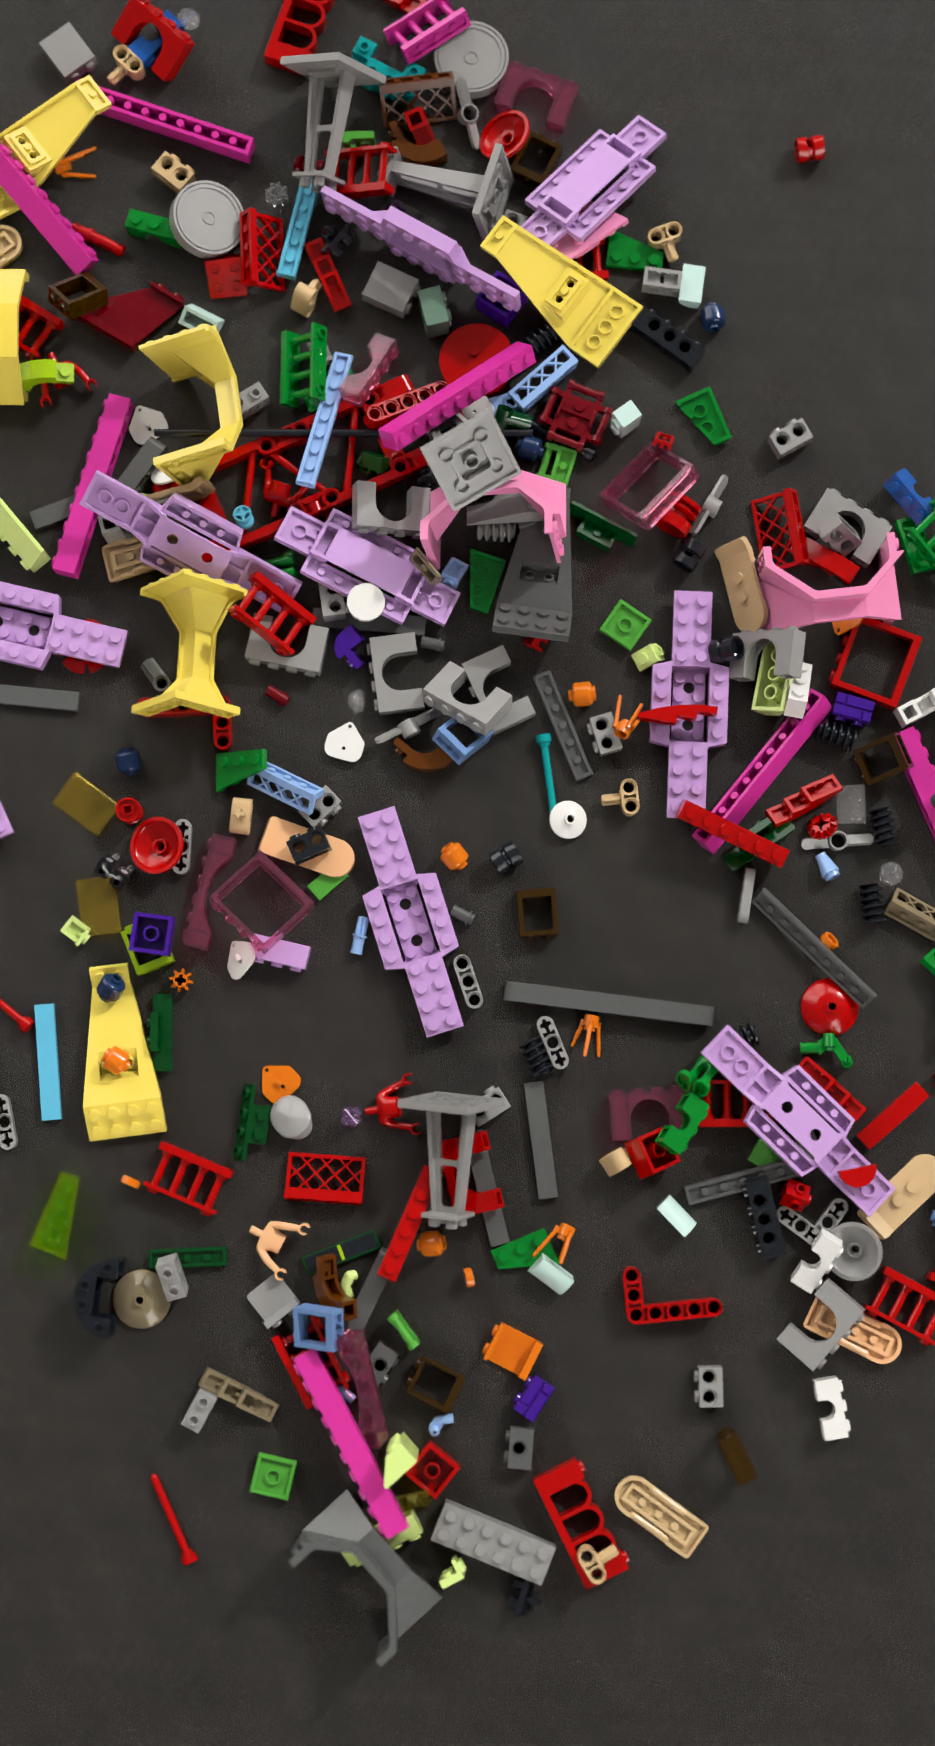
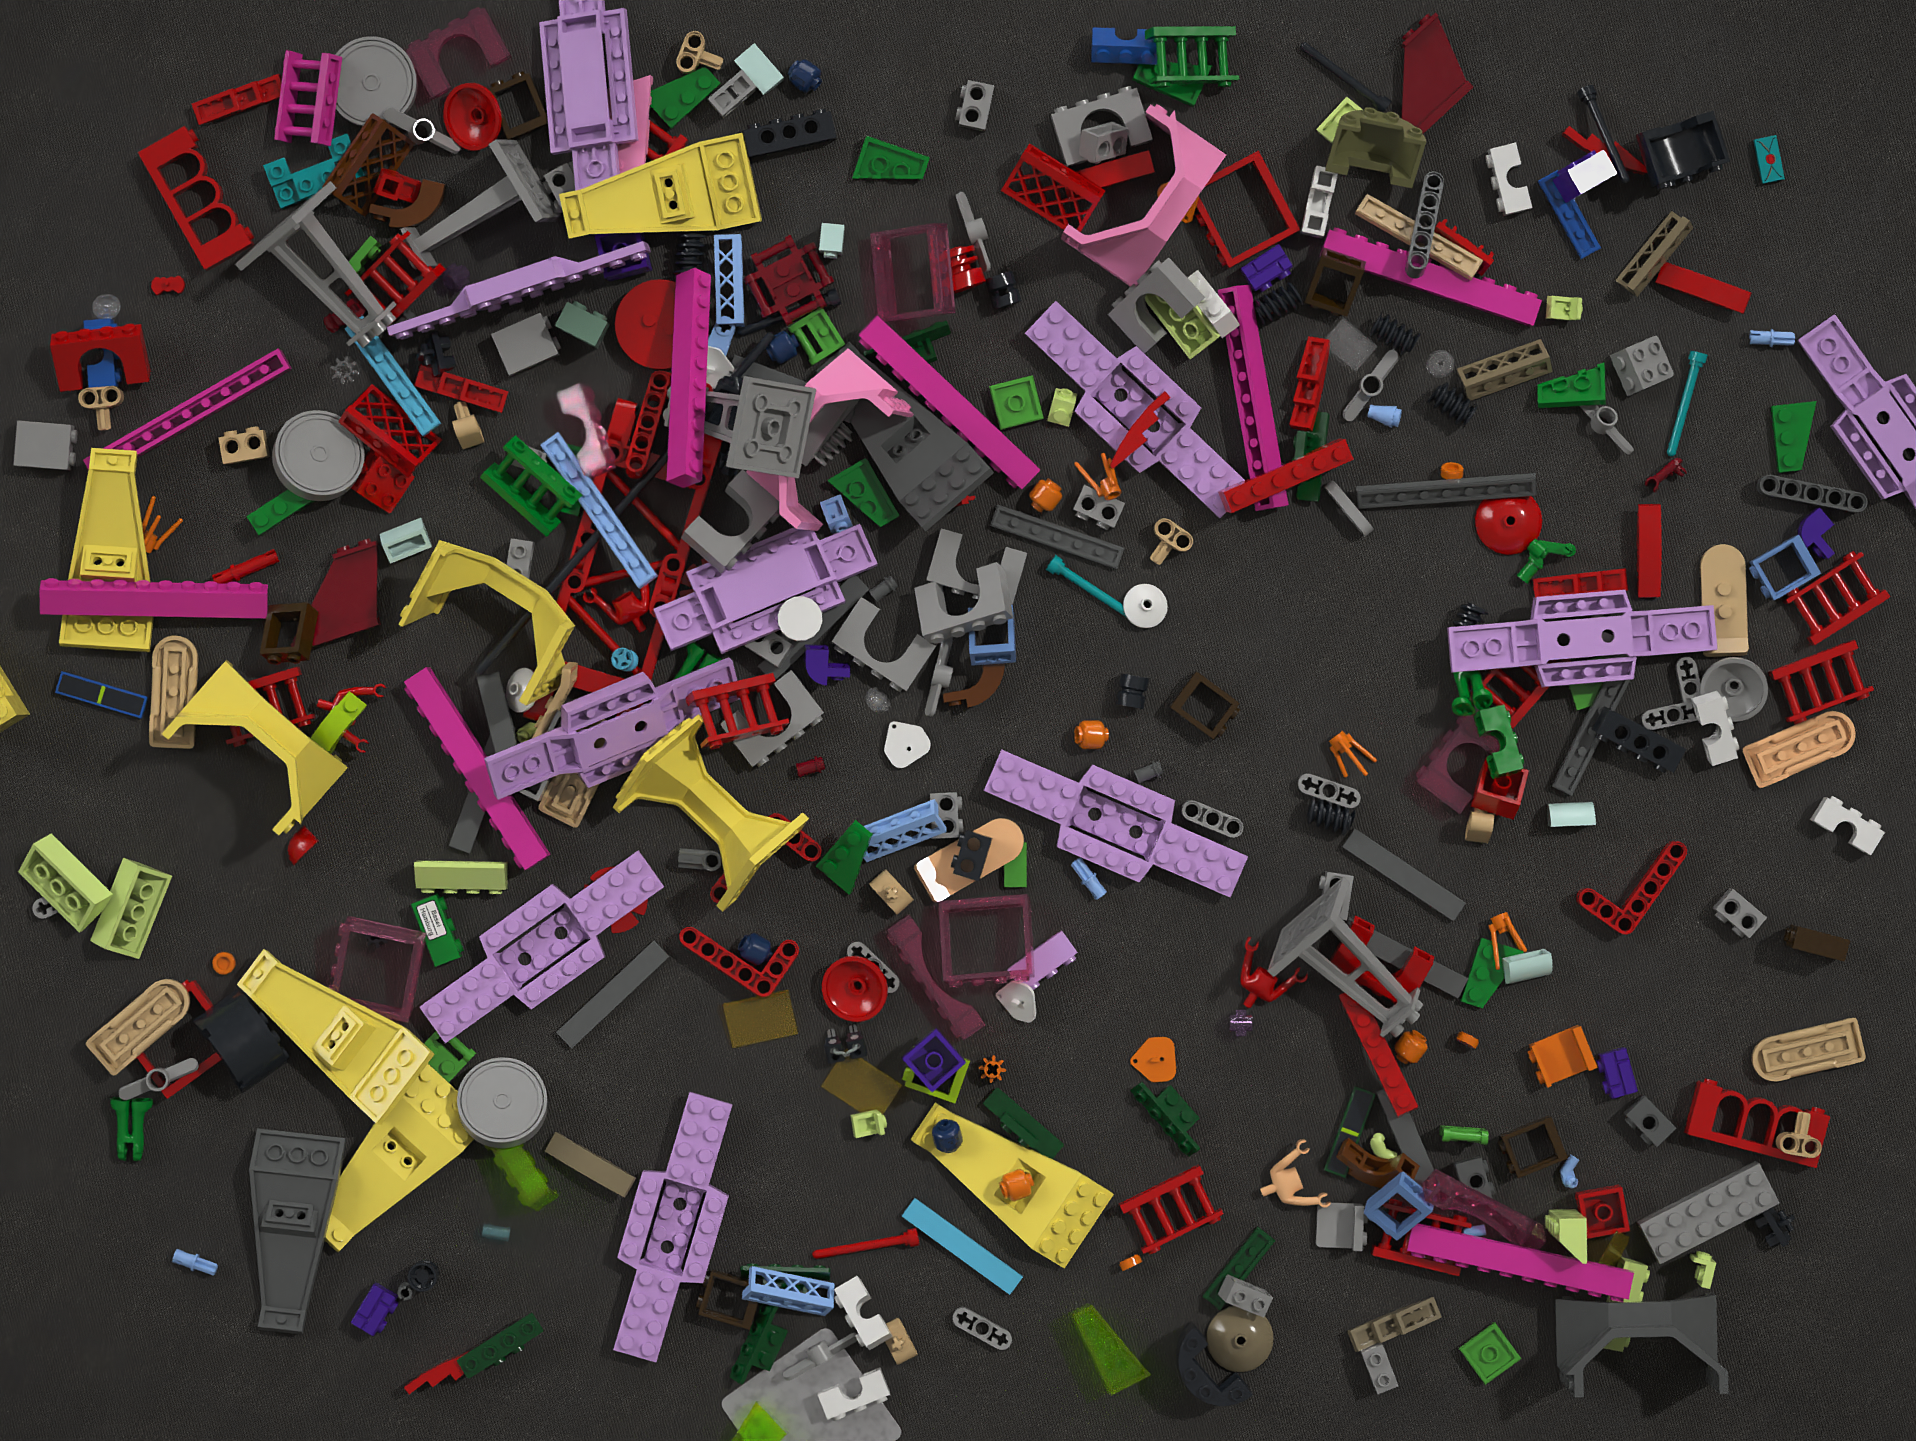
camera: 50 degrees left, 5 degrees up
(108, 759) = (739, 965): none -> red beam
(129, 811) = (802, 986): red wheel -> none
(144, 420) = (452, 667): white piece -> none
(236, 46) = (167, 284): none -> red piece
(291, 1117) = (1196, 1075): light grey piece -> none
(319, 1194) = (1288, 1105): red fence -> none
(373, 462) = (672, 498): dark green piece -> none
(425, 567) = (813, 537): dark tan slope -> none
(508, 418) = (739, 344): dark green piece -> none
(588, 579) = (949, 402): none -> dark pink brick
(609, 1003) = (1338, 712): dark grey beam -> none
(662, 442) = (884, 227): red tile -> none
(726, 649) = (1118, 335): black wheel -> none
(742, 584) = (1072, 267): tan piece -> none
(795, 1195) = (1643, 696): red brick -> none
(813, 1351) = (1781, 742): light grey arch -> none
(828, 829) = (1354, 387): red gear -> none
(858, 1176) = (1675, 628): red tile -> none

